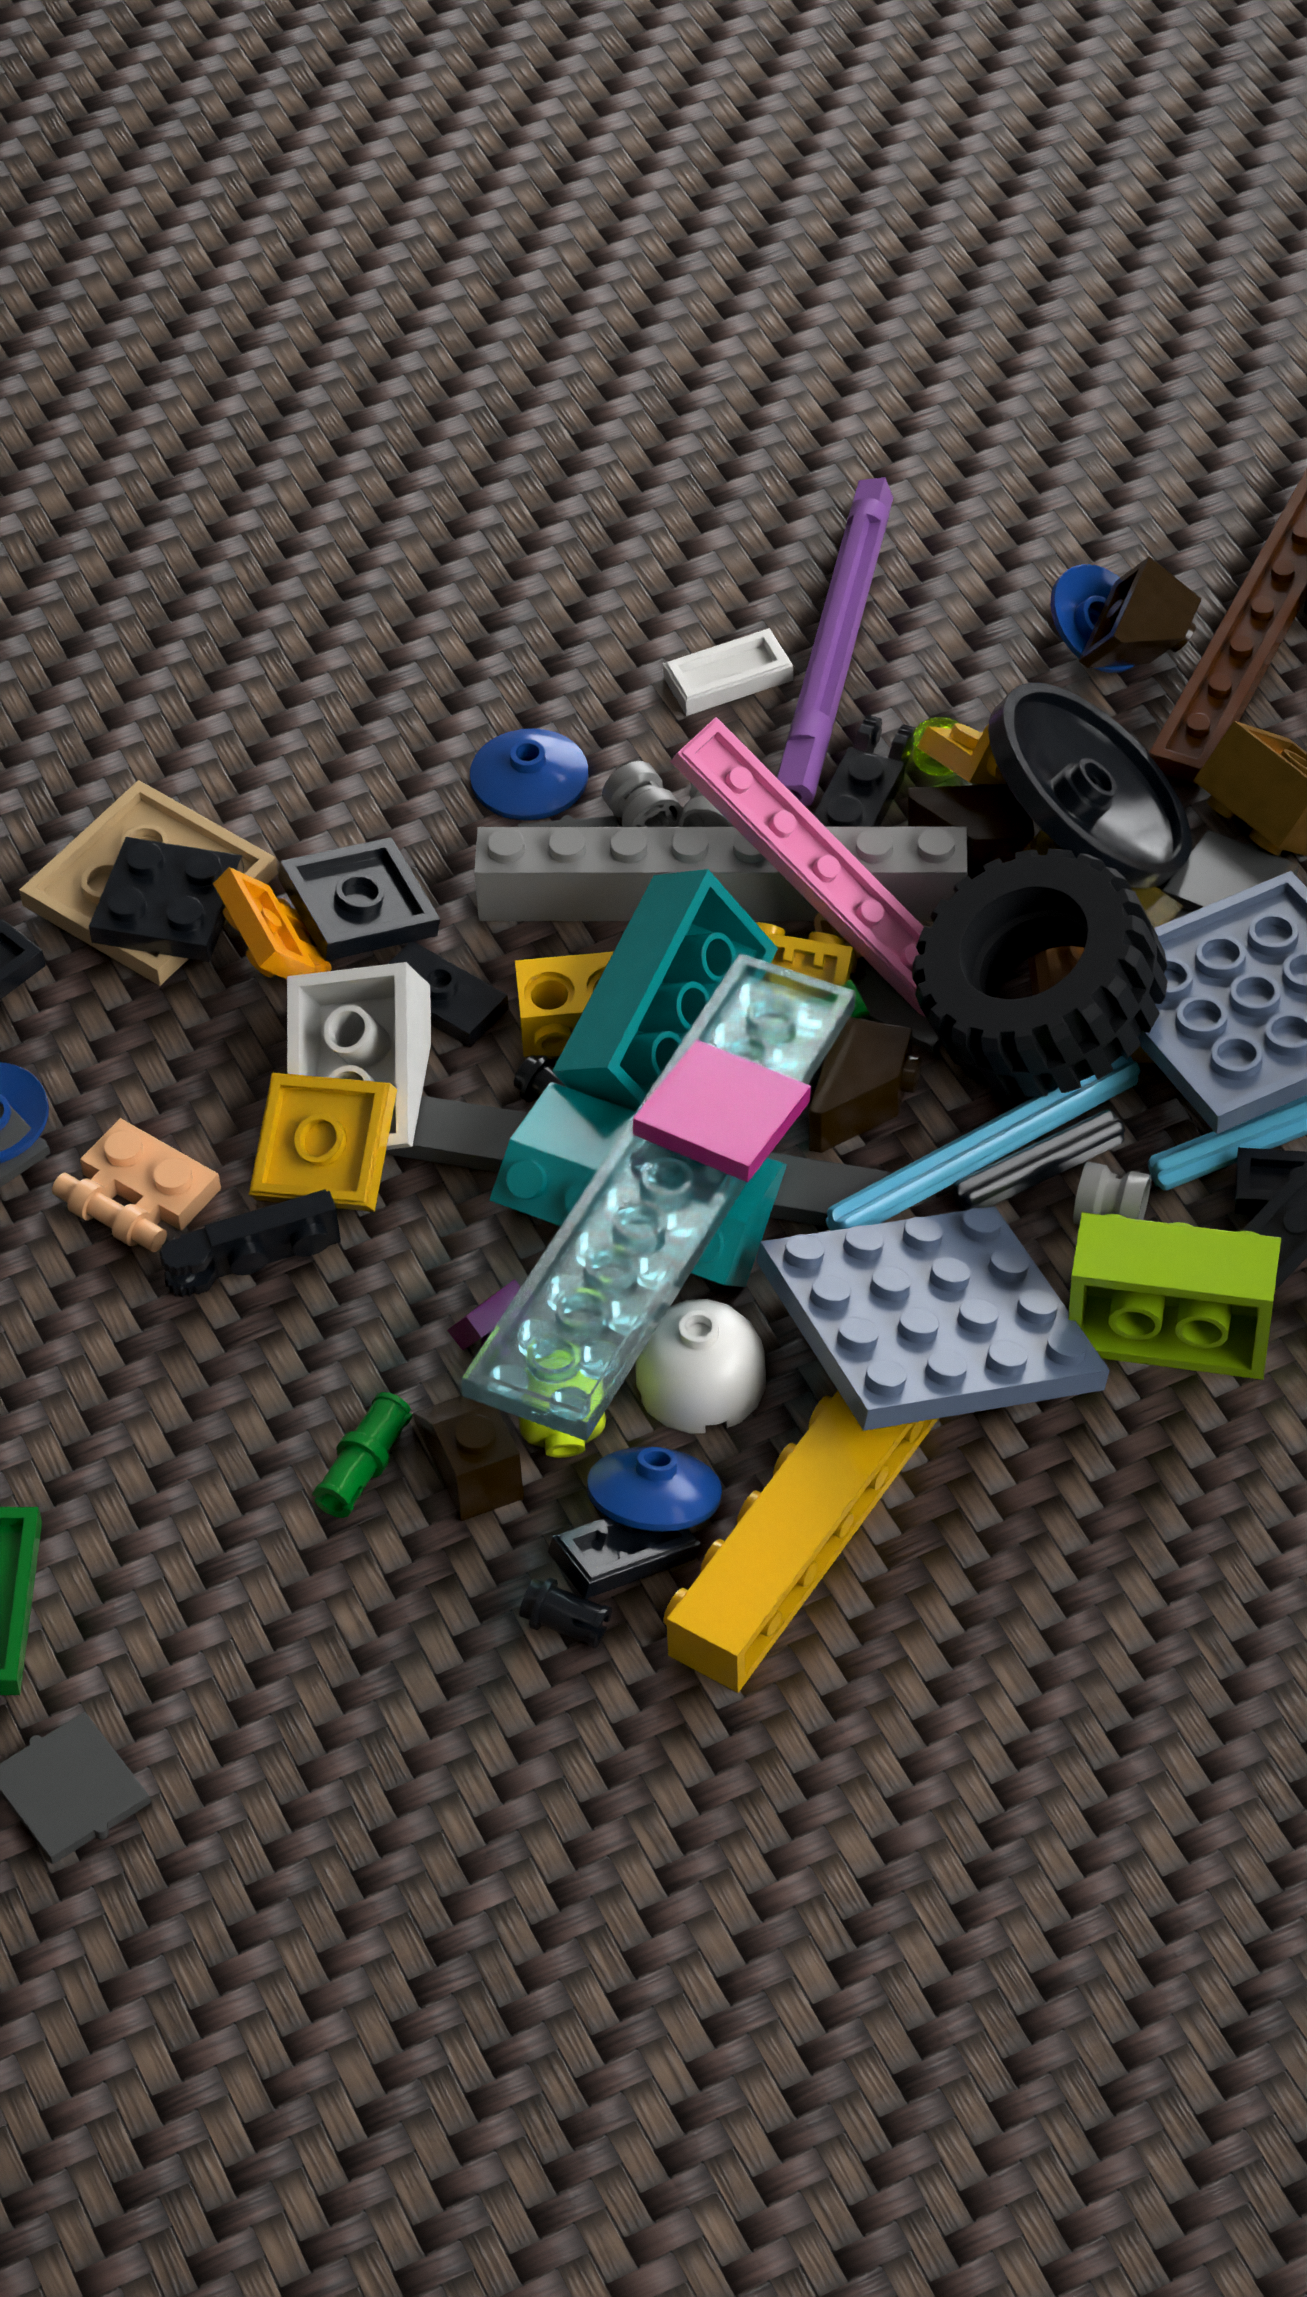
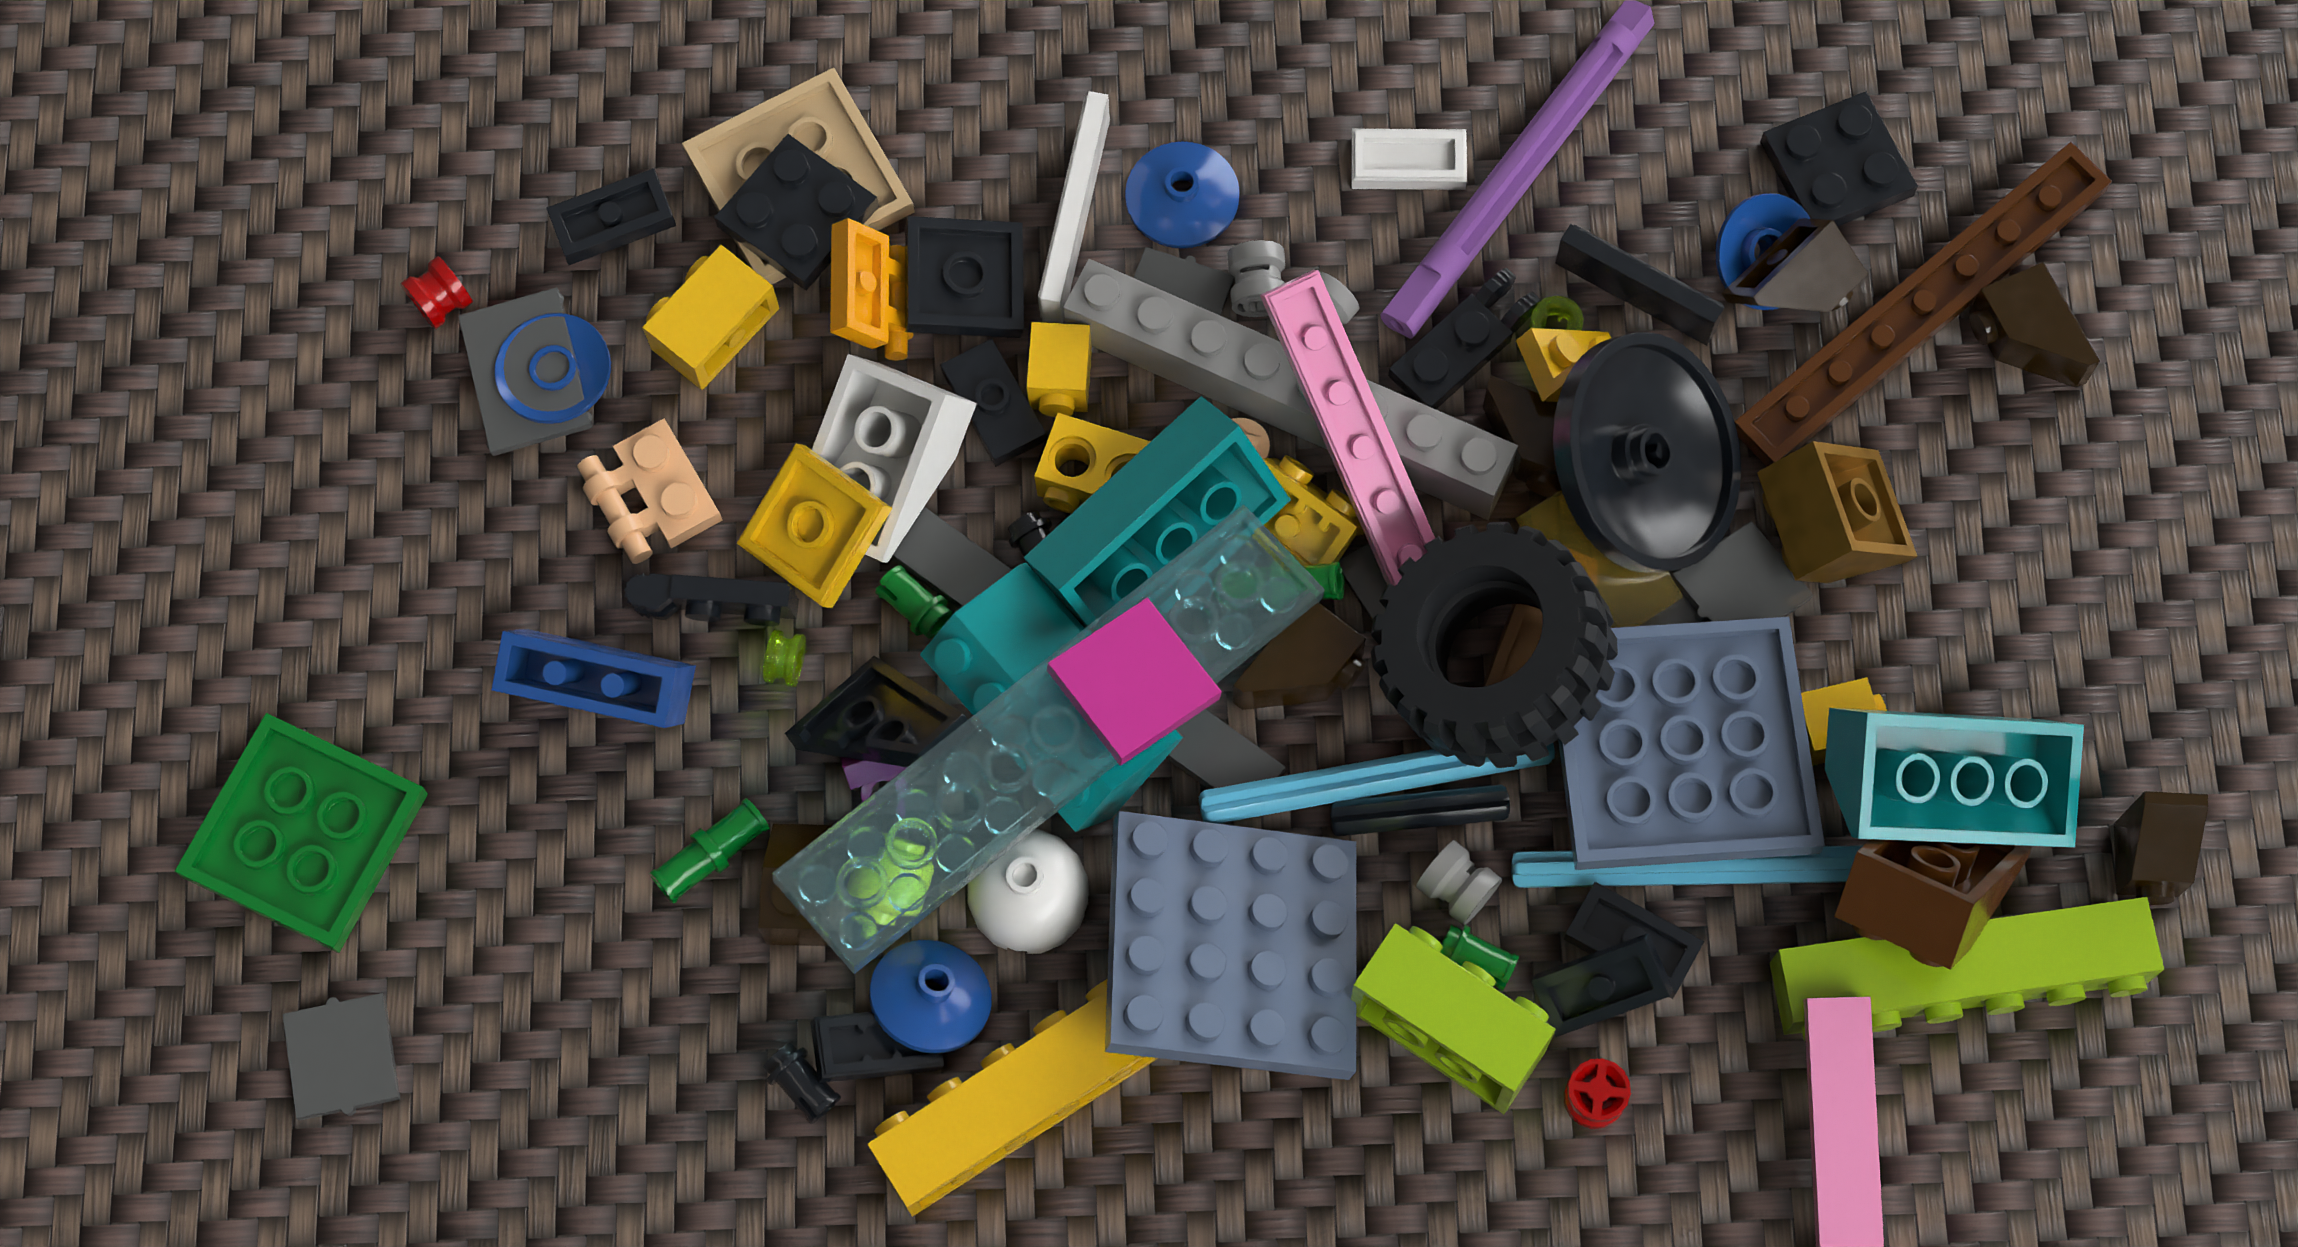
camera: 25 degrees right, 20 degrees up
(122, 1018) = (710, 316): none -> yellow brick
(168, 1343) = (593, 677): none -> blue brick
(350, 1266) = (784, 658): none -> clear neon green bush
(435, 811) = (1074, 207): none -> white tile
(455, 1176) = (914, 602): none -> green pin
(475, 1266) = (876, 719): none -> black wing
(490, 933) = (1059, 368): none -> yellow brick
(984, 681) = (1639, 284): none -> black tile
(1119, 531) = (1839, 161): none -> black plate

